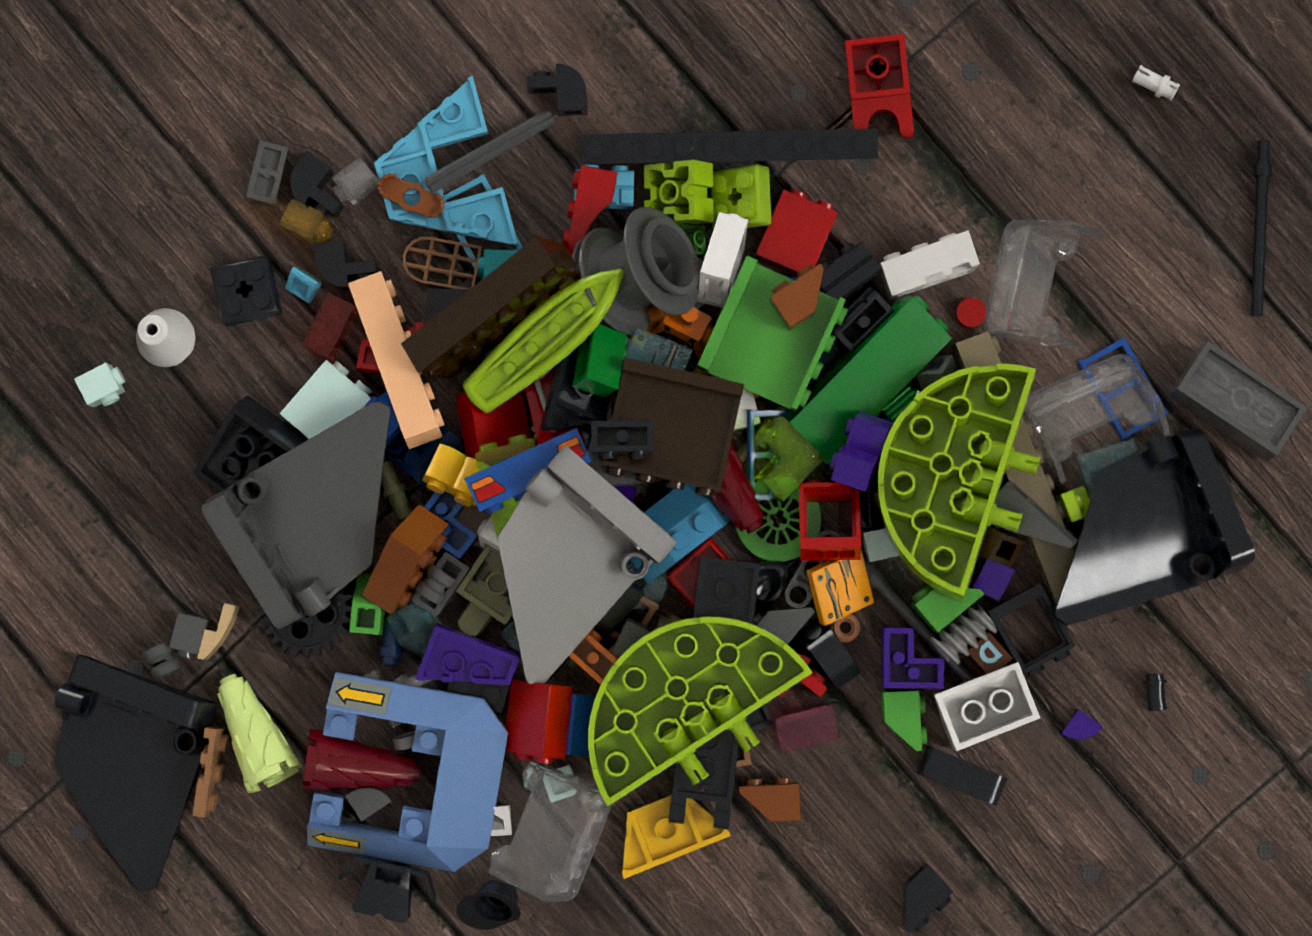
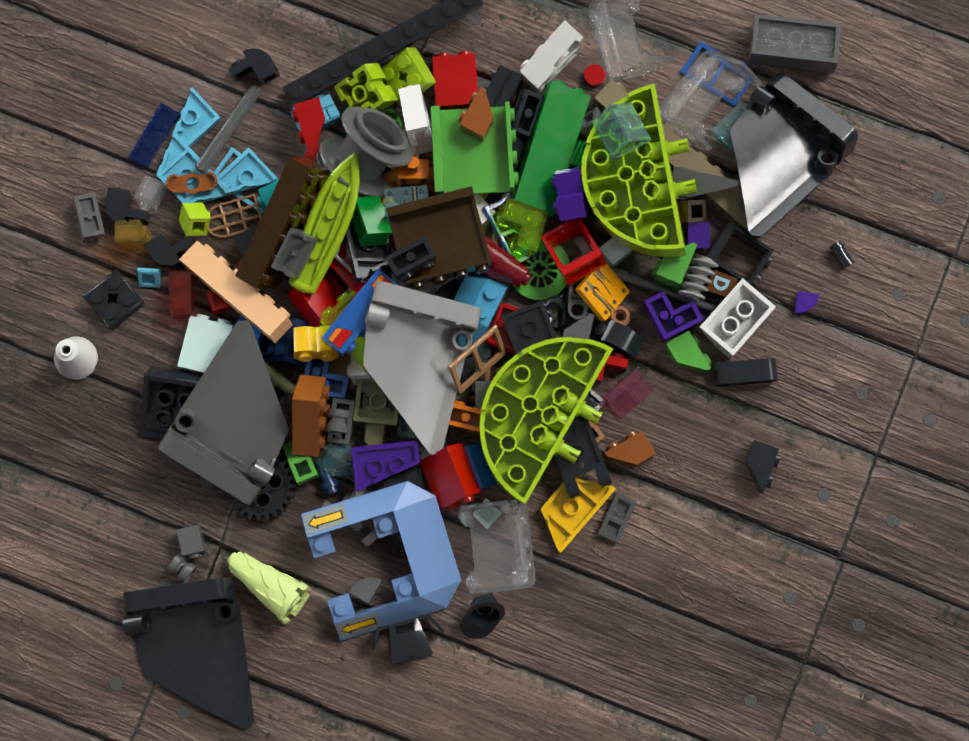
camera: 25 degrees left, 5 degrees down
(101, 385) = (49, 409): light aqua brick -> none
(210, 758) = (257, 644): medium nougat wing -> none
(214, 639) = (209, 536): tan slope -> none
(351, 764) = (341, 570): dark red cone -> none
(392, 243) = (194, 219): none -> lime brick
(397, 111) = (154, 135): none -> clear blue tile
(486, 354) = (294, 253): none -> dark grey hinge
(502, 821) = (461, 558): white slope -> none
(642, 607) = (481, 368): none -> medium nougat window
(715, 870) = (617, 517): none -> dark grey slope
(964, 406) = (620, 129): none -> clear light blue slope
(1074, 504) = (725, 161): lime bracket -> none

